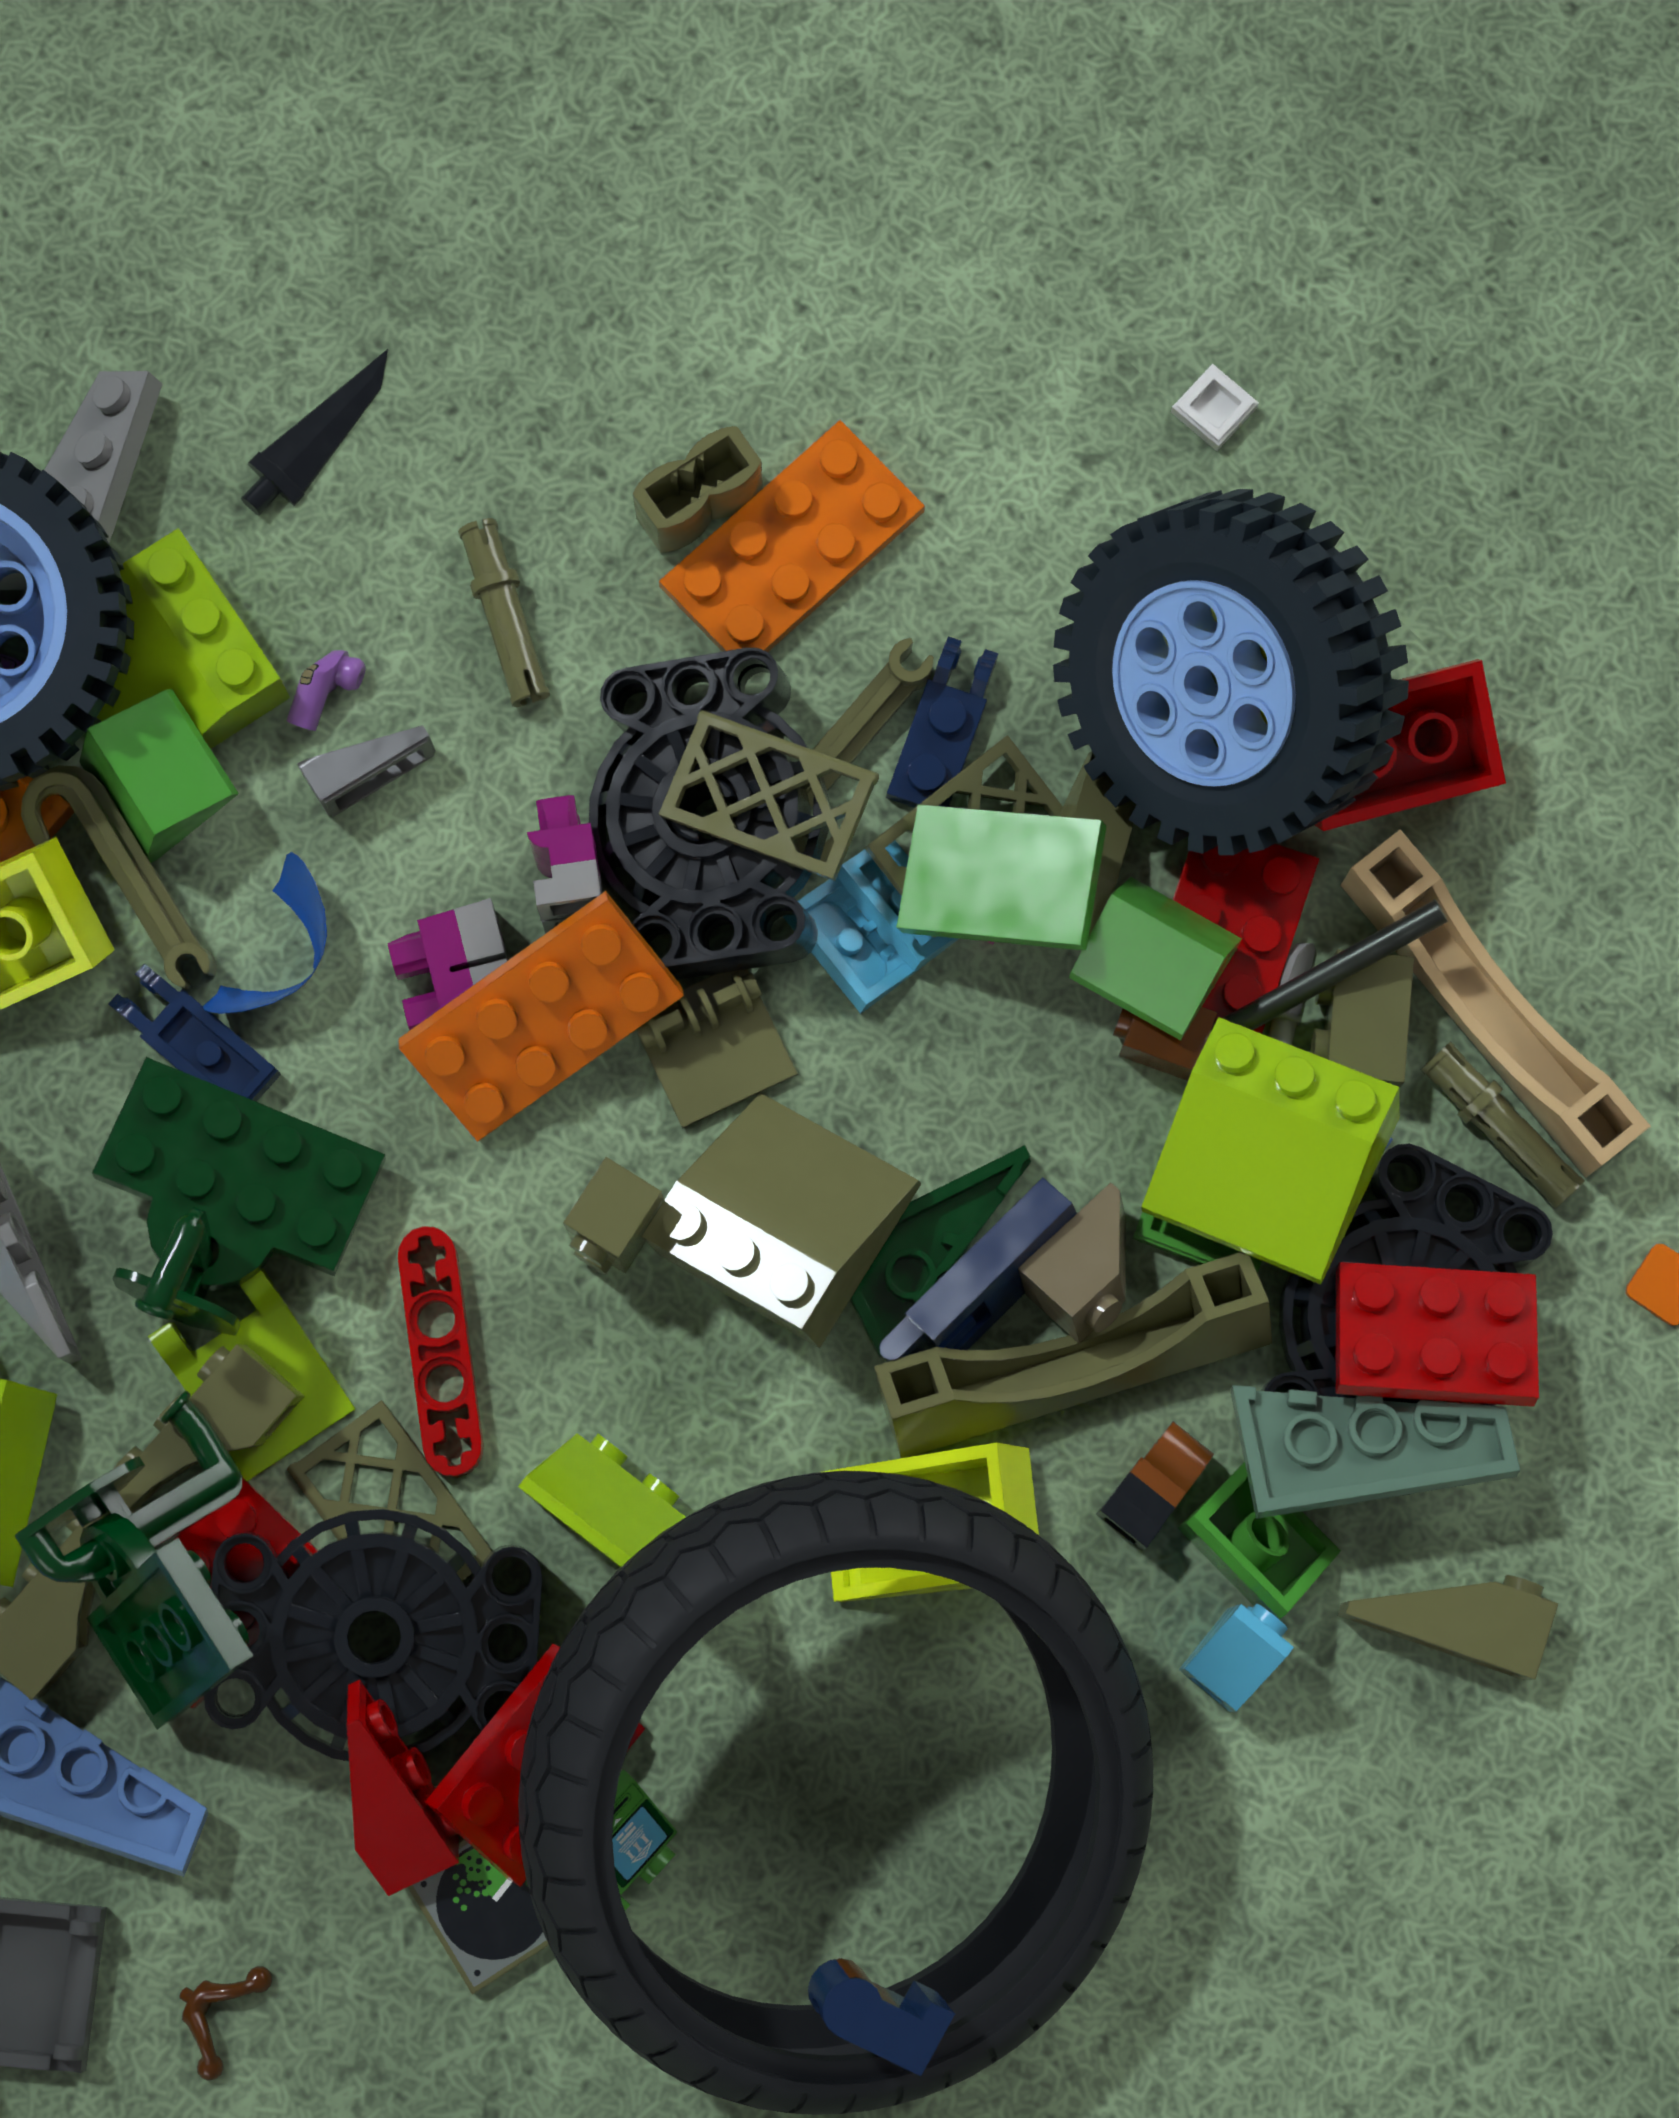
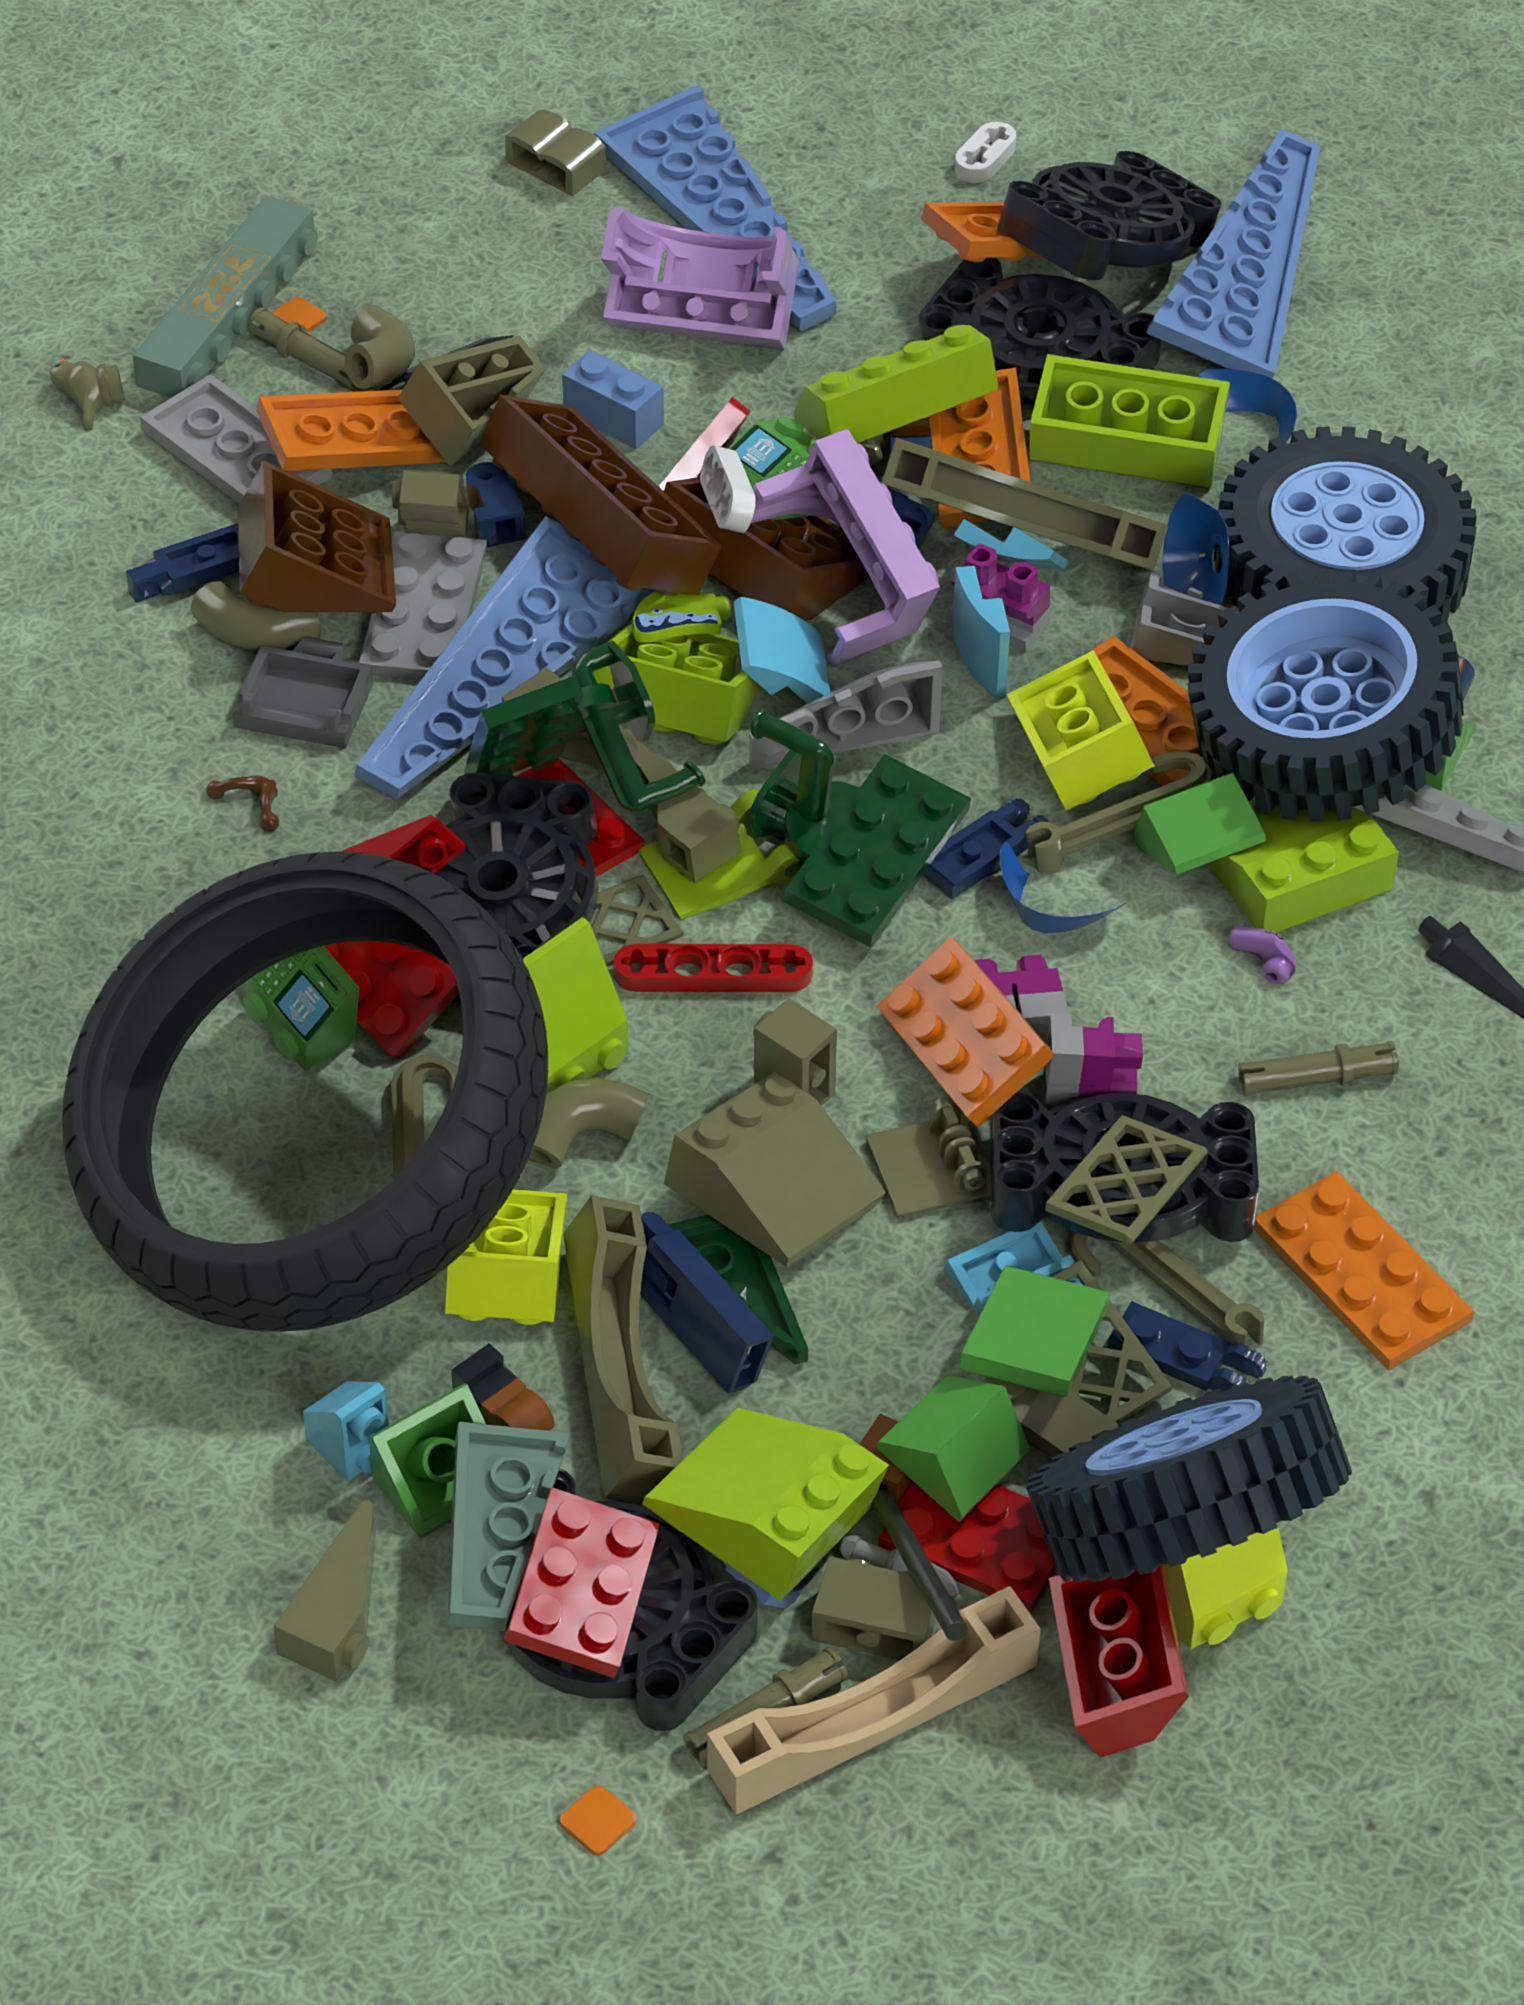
camera: 100 degrees right, 30 degrees down
(361, 769) = (1190, 961): flat silver slope -> none
(685, 495) = (1411, 1191): olive brick -> none
(703, 1446) = (583, 1107): none -> olive cylinder
(779, 1678) = (409, 1104): none -> olive piece
(878, 2019) = (130, 1069): dark blue leg -> none
(1082, 1268) = (695, 1368): dark tan slope -> none
(1214, 407) = (1471, 1594): white tile -> none

